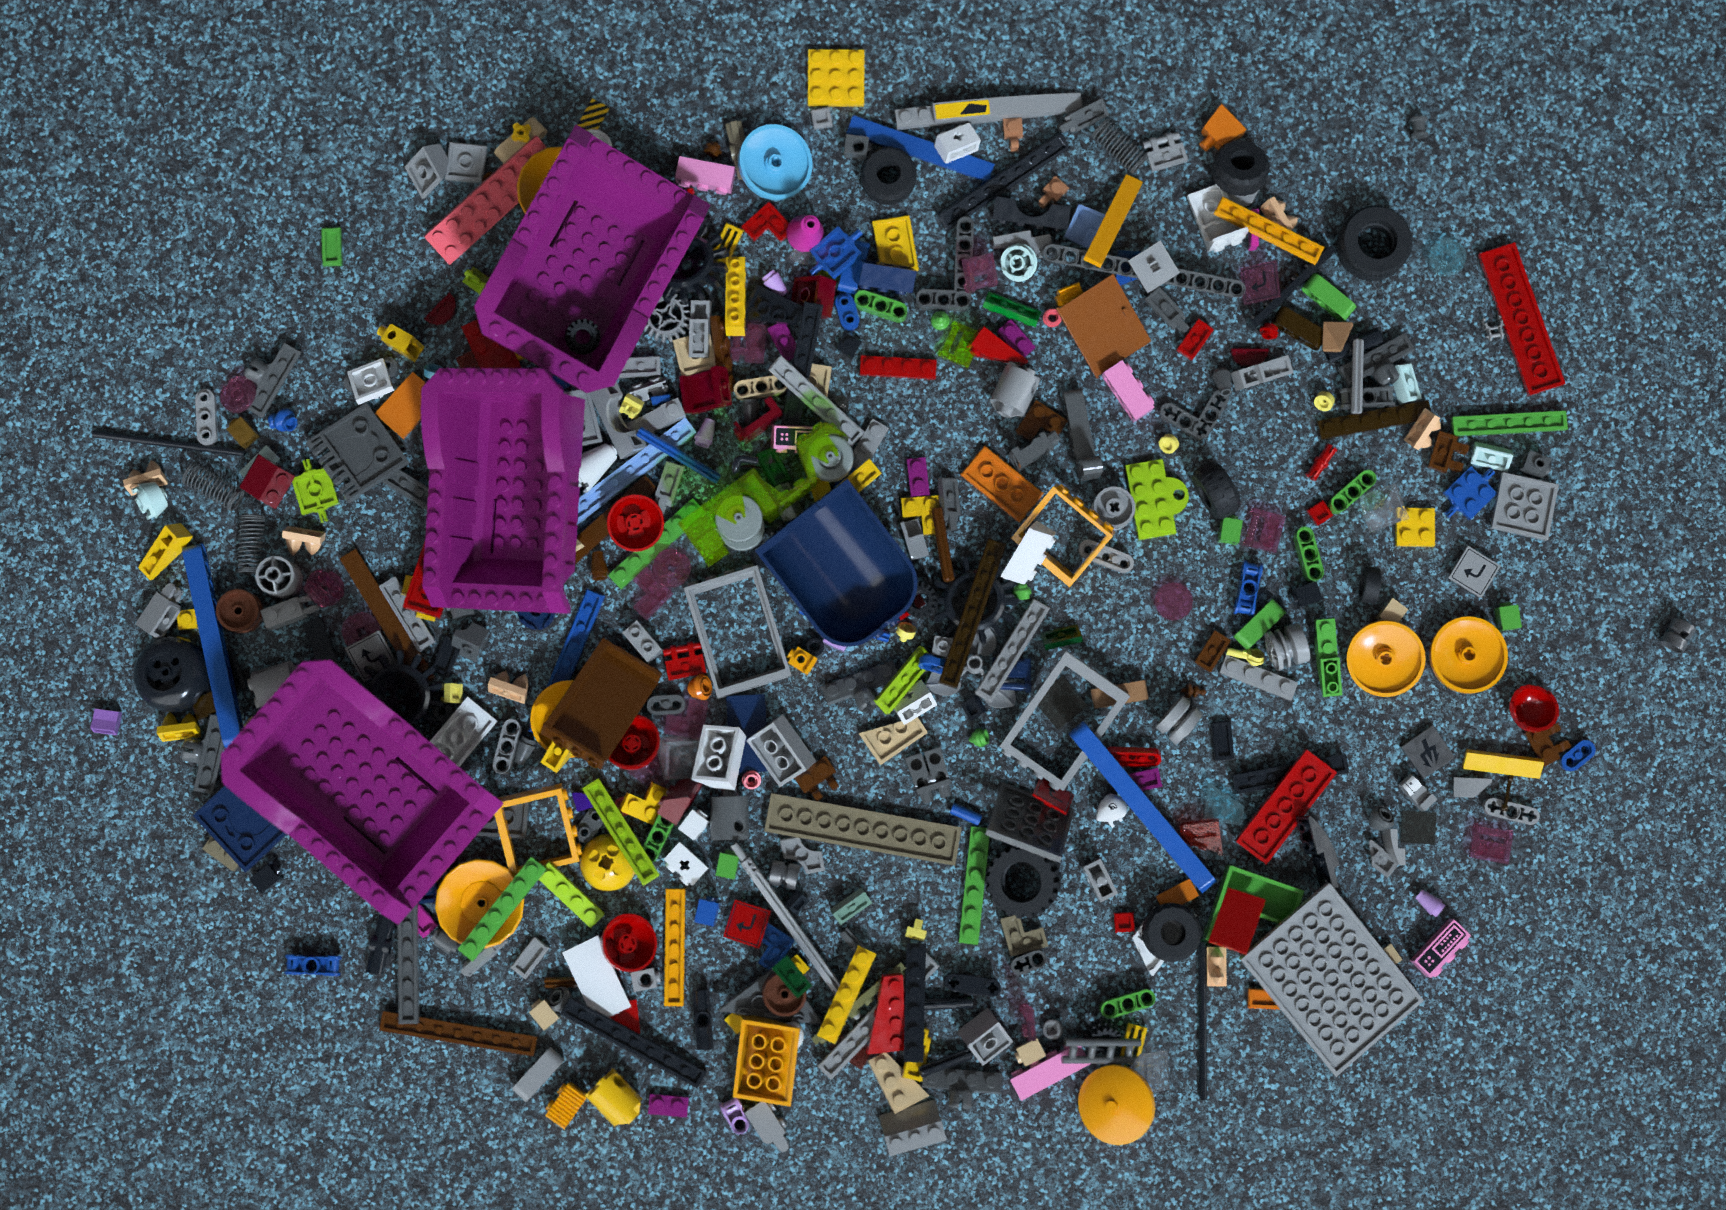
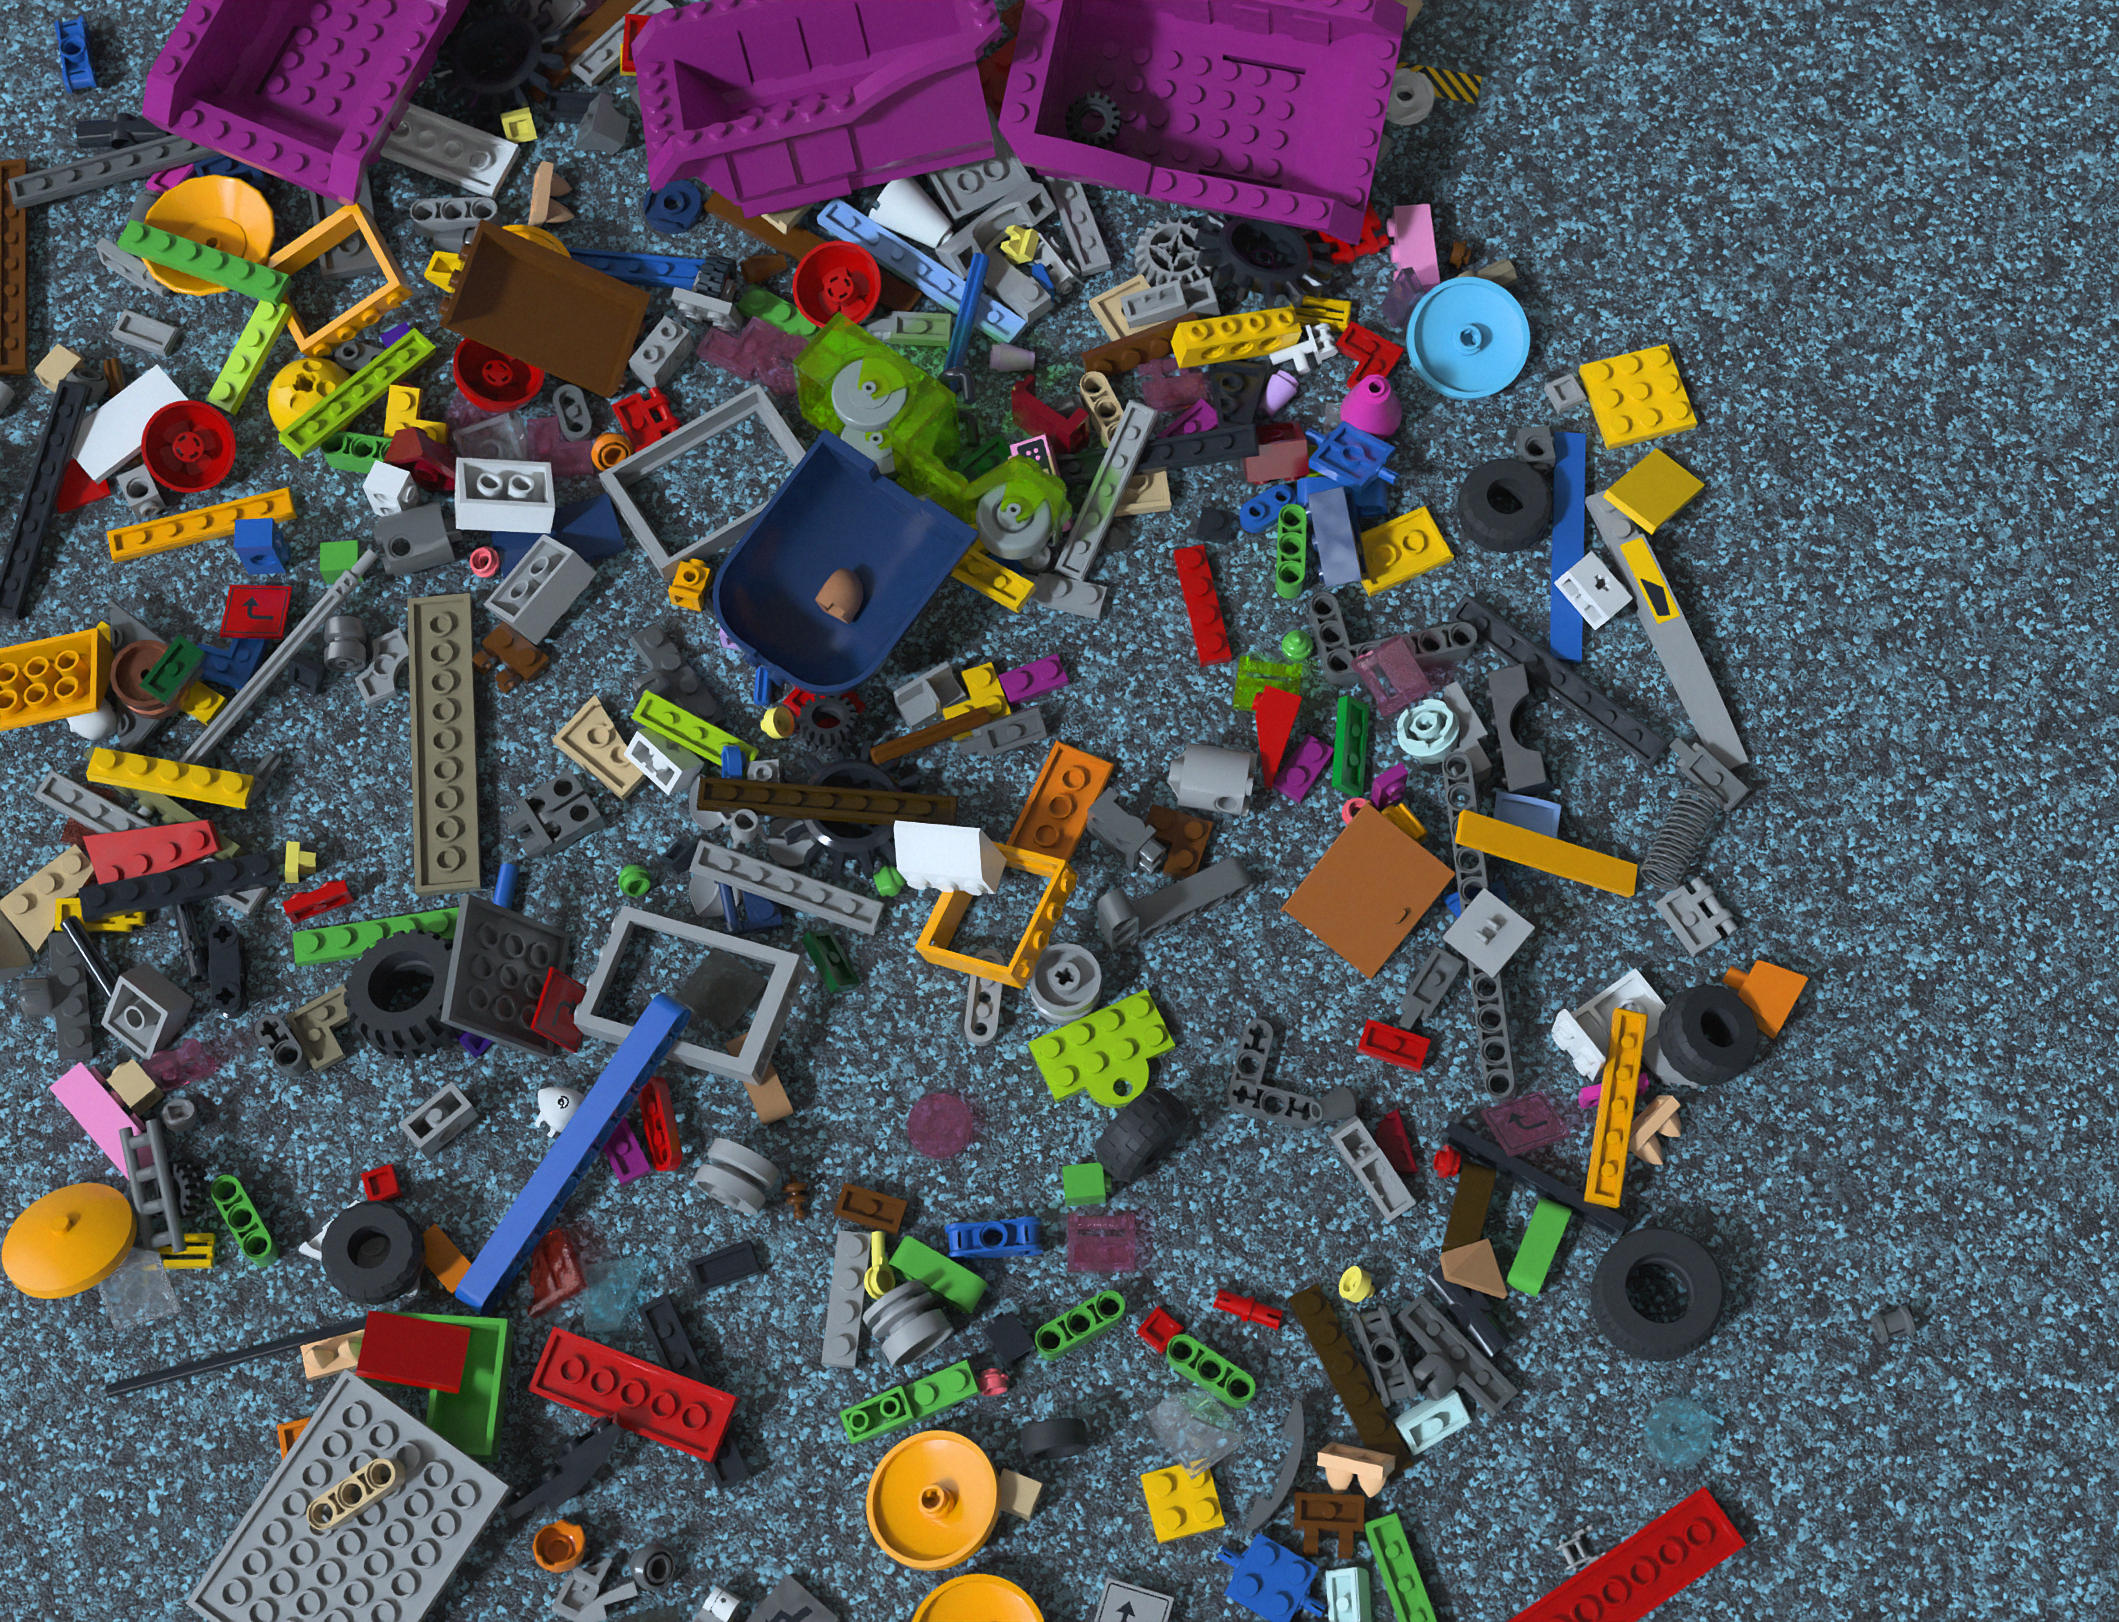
camera: 80 degrees right, 15 degrees down
(615, 600) = (711, 294): none -> light grey plate
(682, 853) = (331, 503): white brick -> none
(704, 1033) = (78, 594): black piece -> none
(705, 390) = (1074, 334): dark red panel -> none
(738, 191) = (1402, 297): none -> clear purple plate
(750, 262) = (1299, 350): none -> white arm
(841, 571) = (841, 595): none -> nougat brick
(850, 906) = (317, 755): sand green plate -> none
(903, 88) = (1653, 491): none -> yellow tile
(944, 931) = (328, 897): none -> red plate
(1013, 130) = (1646, 674): nougat plate -> none
(1047, 294) = (1389, 787): none -> magenta plate
(1053, 191) = (1570, 763): nougat plate -> none
(1128, 390) = (1272, 960): bright pink brick -> none
(1168, 443) = (1204, 1049): light yellow tile -> none
(1318, 973) = (340, 1495): none -> tan beam
(1326, 610) = (992, 1382): none -> coral plate
(1357, 376) = (1412, 1321): light grey axle -> none
(1357, 865) = (559, 1546): none -> orange hair
(1434, 486) = (1266, 1509): none -> dark grey slope

